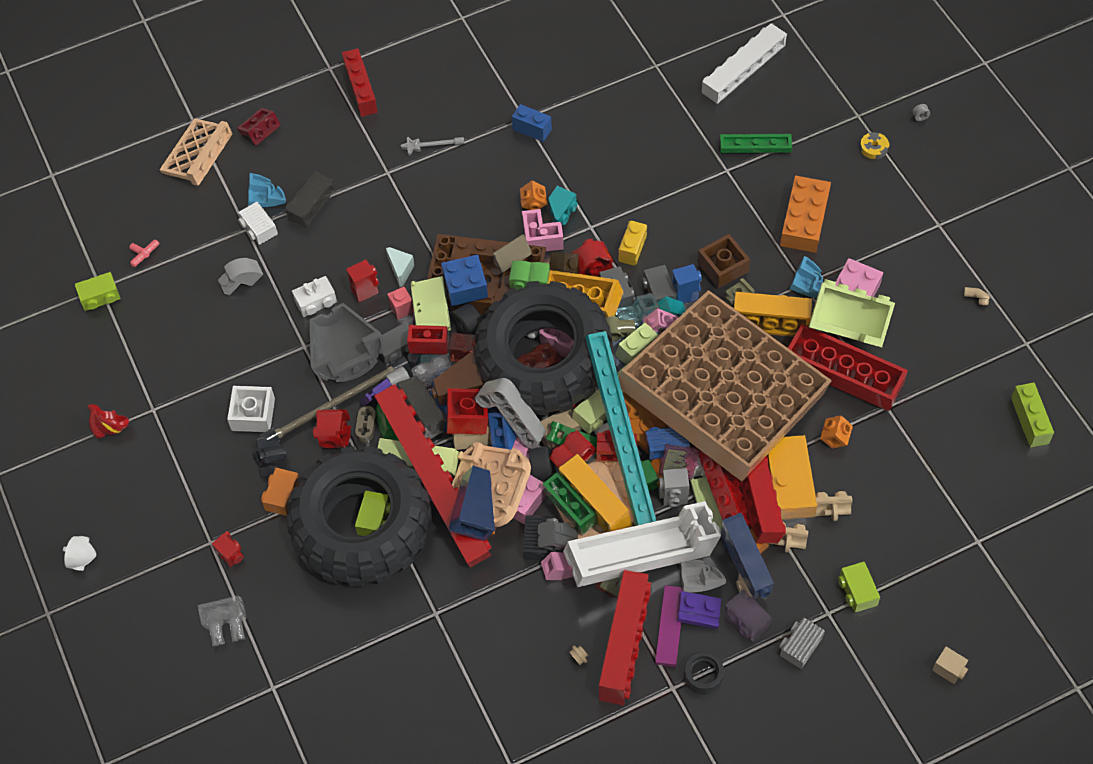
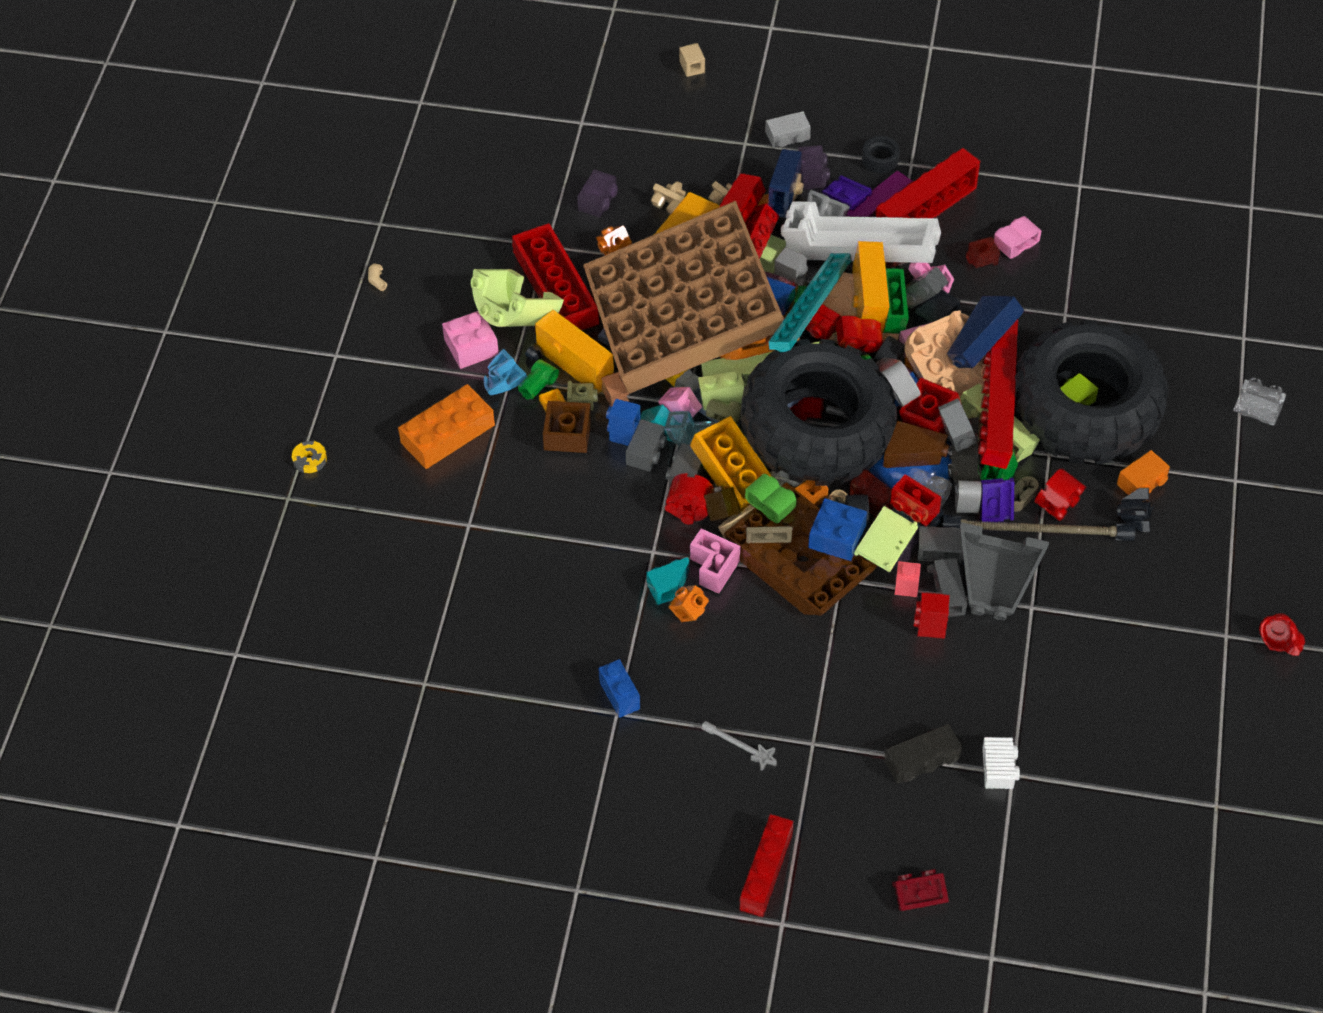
camera: 145 degrees left, 5 degrees down
(97, 291) = (1225, 785): lime brick -> none
(142, 252) = (1147, 812): coral piece -> none
(207, 153) = (998, 891): light nougat fence -> none
(228, 549) = (1224, 455): red brick -> none
(239, 271) = (1055, 706): light grey brick -> none
(251, 408) = (1128, 560): white brick -> none
(264, 192) = (967, 801): dark azure brick -> none
(314, 296) = (990, 641): white brick -> none
(370, 313) = (949, 582): none -> dark grey brick
(401, 264) = (877, 619): light aqua slope -> none
(431, 396) = (957, 425): none -> slope
(523, 658) = (1017, 237): none -> bright pink brick
(539, 612) = (983, 252): none -> clear red brick
(579, 654) = (969, 216): tan plate -> none
(632, 243) = (633, 499): yellow brick -> none
(743, 63) = (339, 615): white brick -> none
(755, 143) = (417, 526): green plate -> none
(758, 283) = (553, 395): none -> light orange tile
(781, 283) = (540, 376): none -> green piece
(859, 587) = (708, 138): lime brick -> none
(892, 470) = (597, 193): none -> clear purple brick
(921, 112) = (232, 455): light grey bush -> none
(1032, 415) = (444, 165): lime brick -> none

